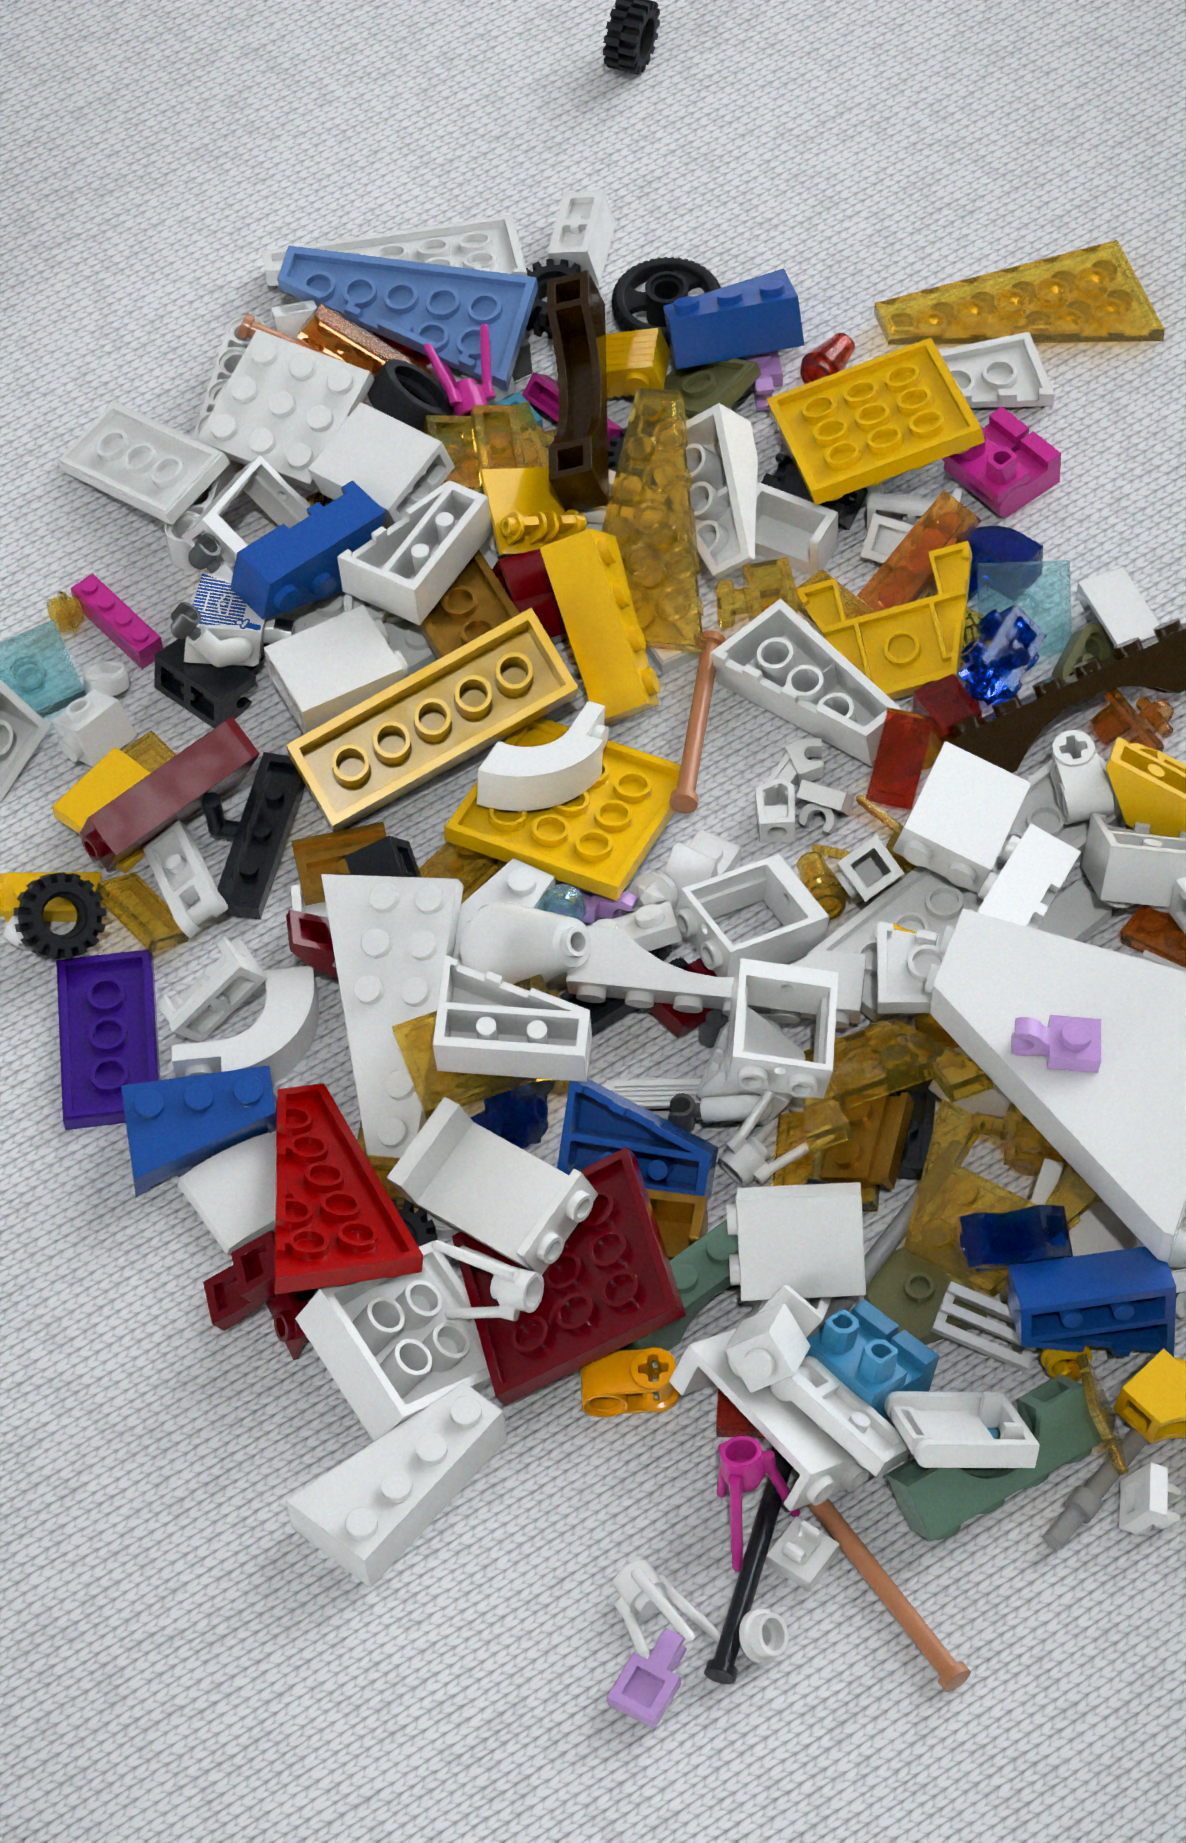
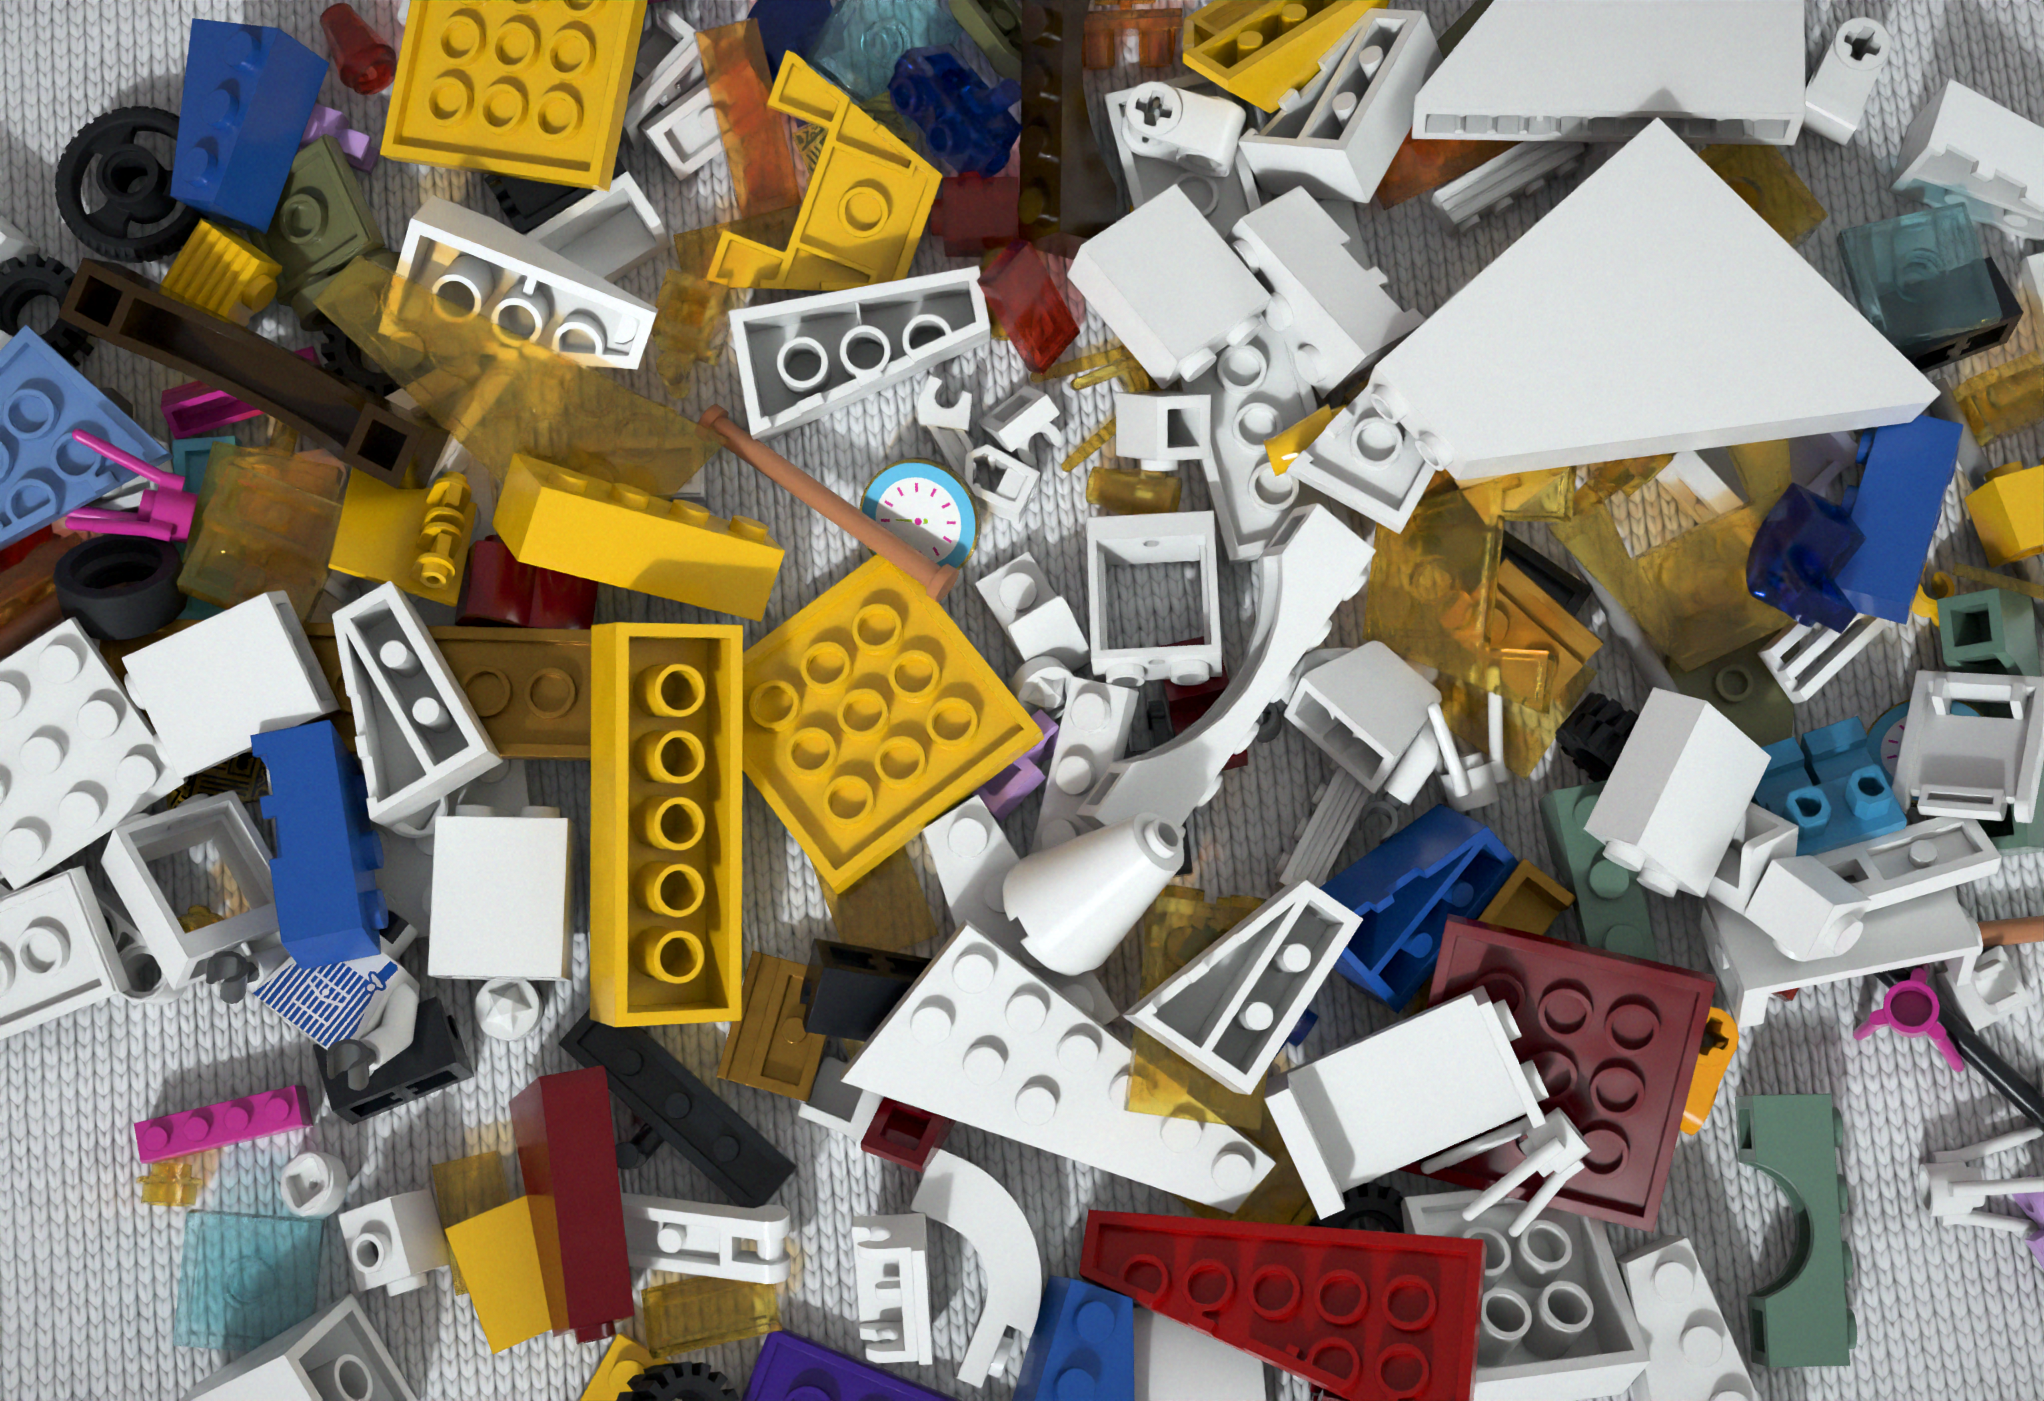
camera: 65 degrees left, 25 degrees up
(272, 725) = (508, 1009): none -> white tile
(500, 1529) = (1803, 1311): none -> sand green arch
(545, 774) = (831, 731): white arch -> none
(563, 901) = (1022, 807): clear light blue plate -> none
(726, 775) = (926, 508): none -> piece
(810, 993) = (1418, 615): white window -> none
(1066, 1042) = (1637, 361): lavender plate -> none

